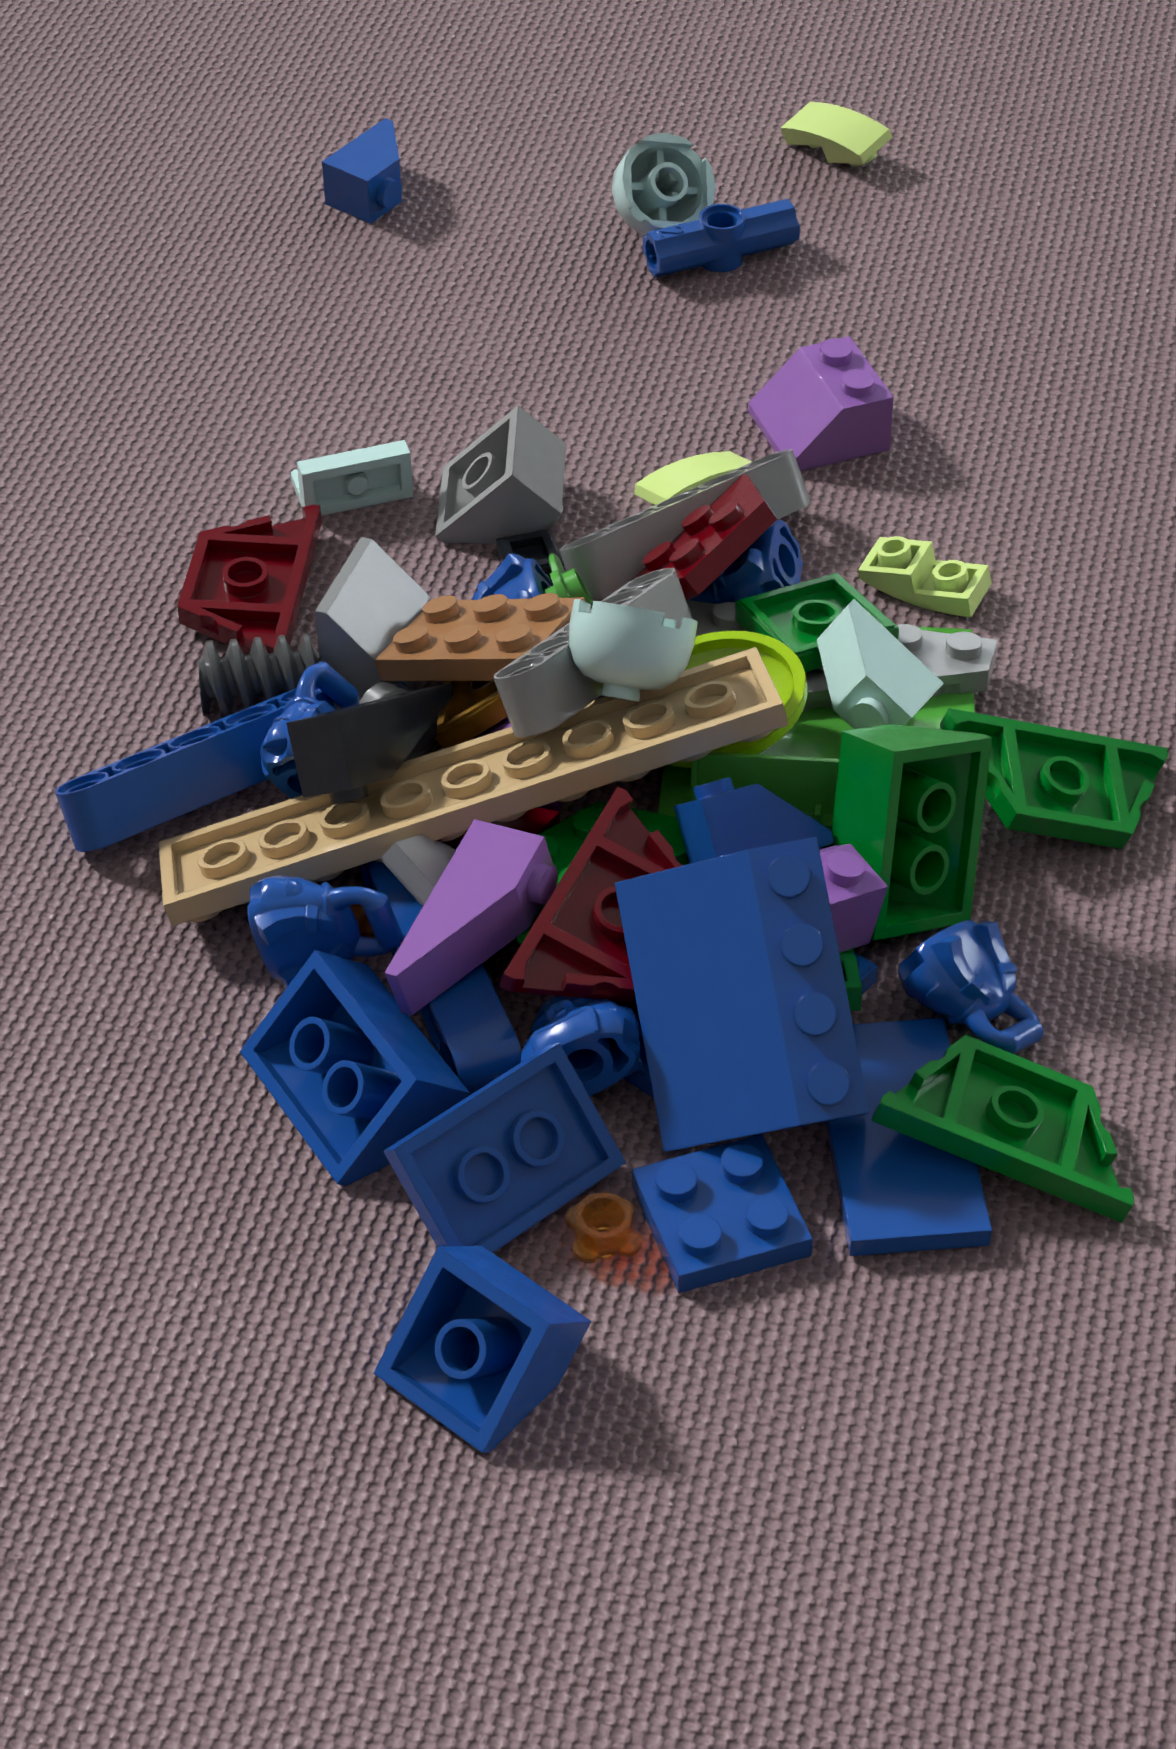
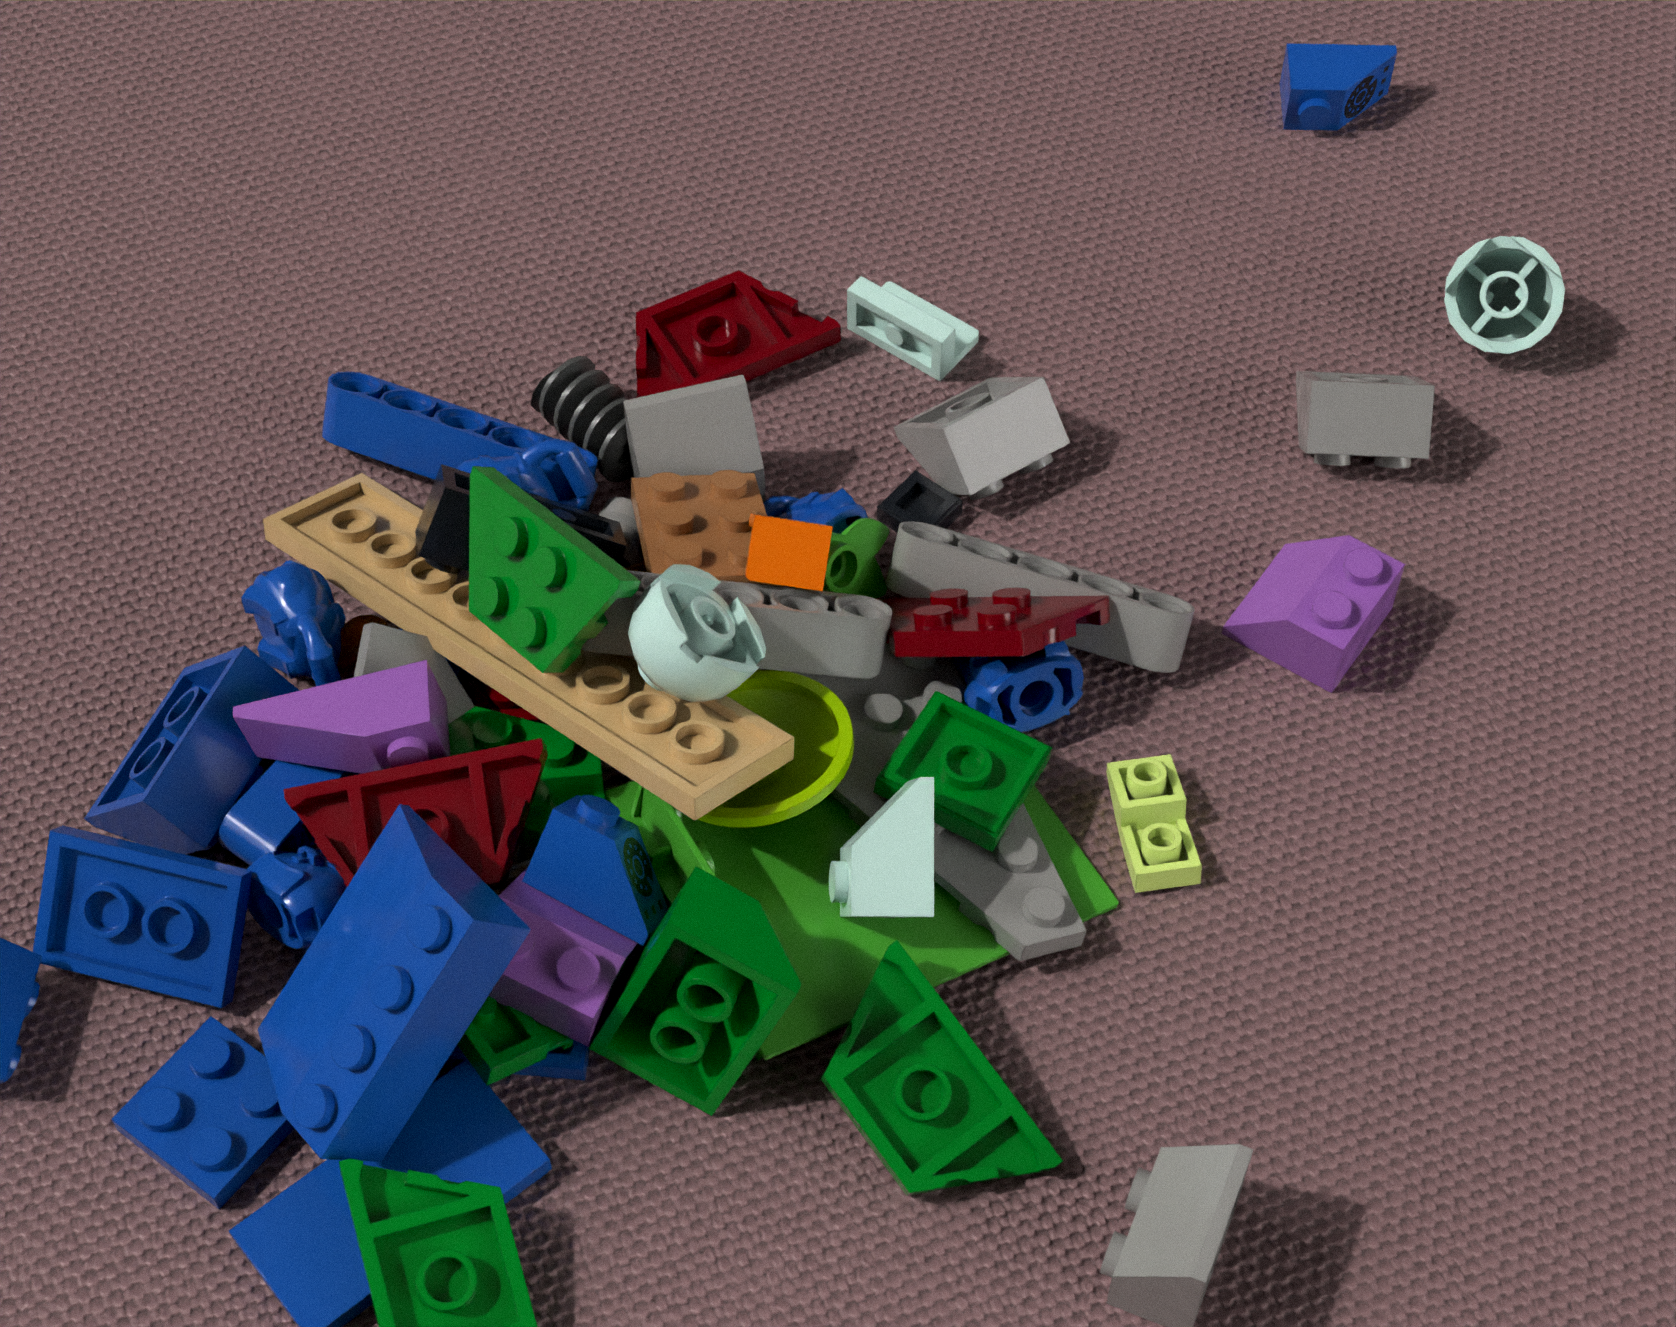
camera: 55 degrees right, 10 degrees up
(476, 703) = (536, 574): none -> green wing
(572, 575) = (788, 552): none -> orange panel
(599, 1213) = (131, 1018): clear orange plate -> none
(686, 306) = (1364, 417): none -> light grey slope
(686, 474) = (1122, 559): yellowish green slope -> none
(721, 237) = (1499, 383): blue piece -> none
(971, 982) = (591, 1156): blue piece -> none

